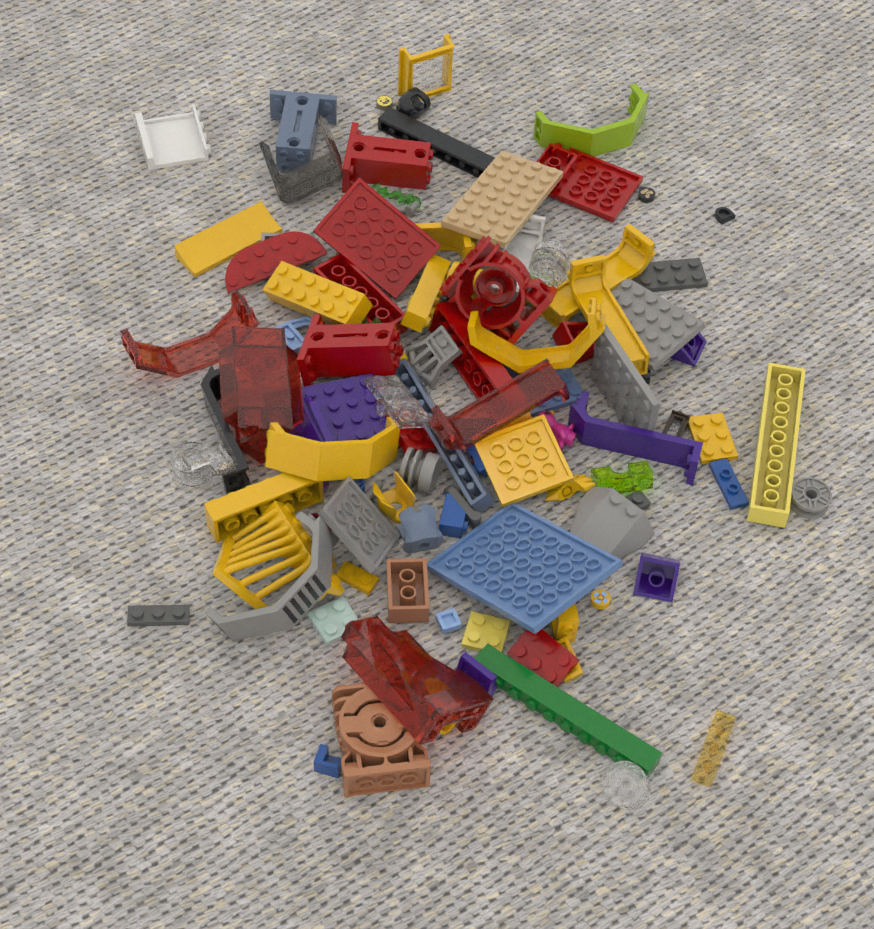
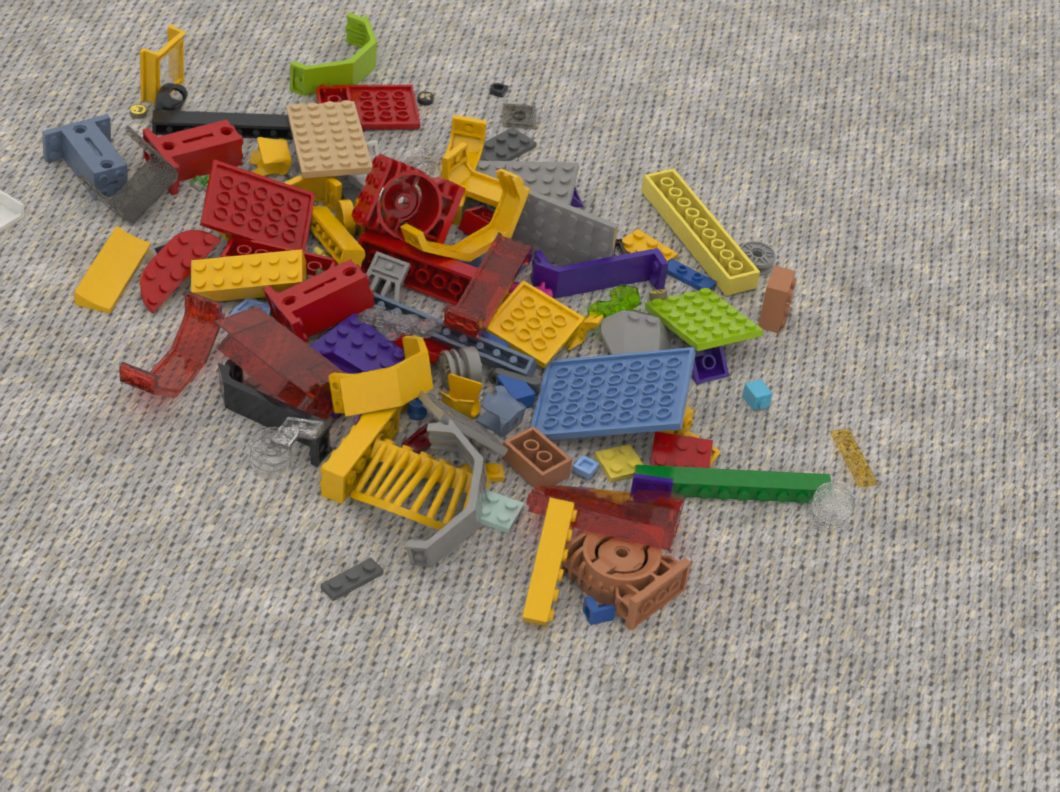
camera: 40 degrees left, 10 degrees down
(308, 694) = (548, 562): none -> yellow brick
(446, 192) = (271, 157): none -> yellow piece
(675, 635) = (757, 395): none -> medium azure brick
(678, 487) = (658, 294): none -> dark tan tile
(689, 535) = (703, 319): none -> lime plate
(718, 249) = (519, 116): none -> clear smoke tile
(776, 550) = (777, 299): none -> nougat brick

